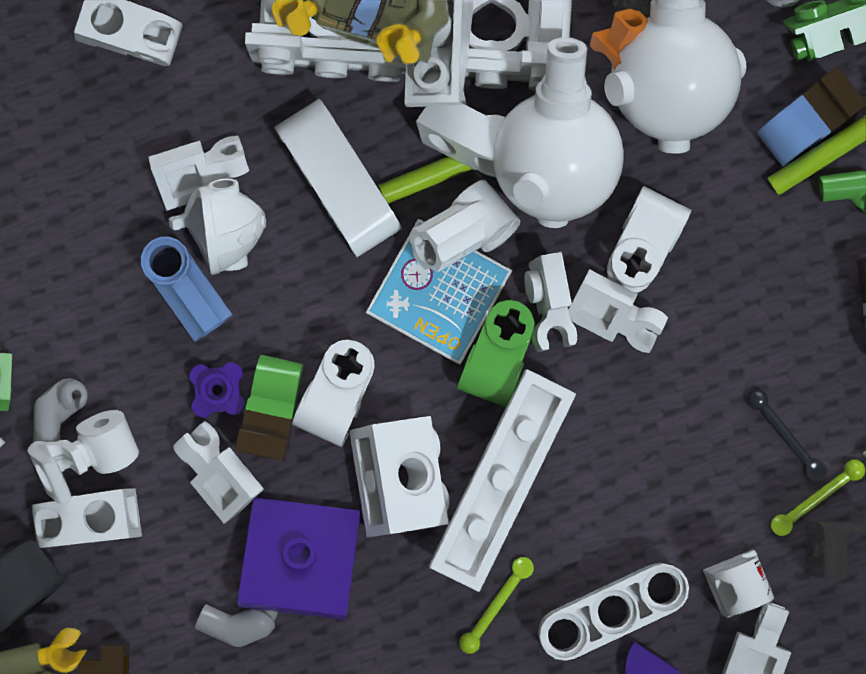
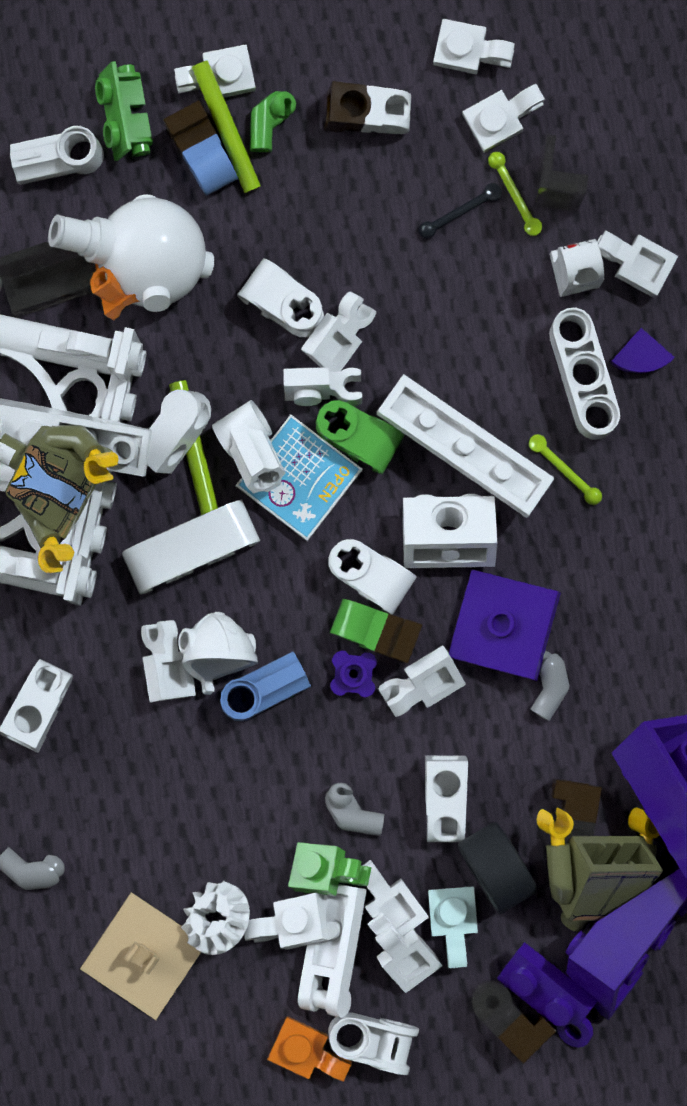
camera: 85 degrees left, 0 degrees up
(102, 443) = (386, 774): white leg -> none
(559, 148) = (197, 356): white piece -> none

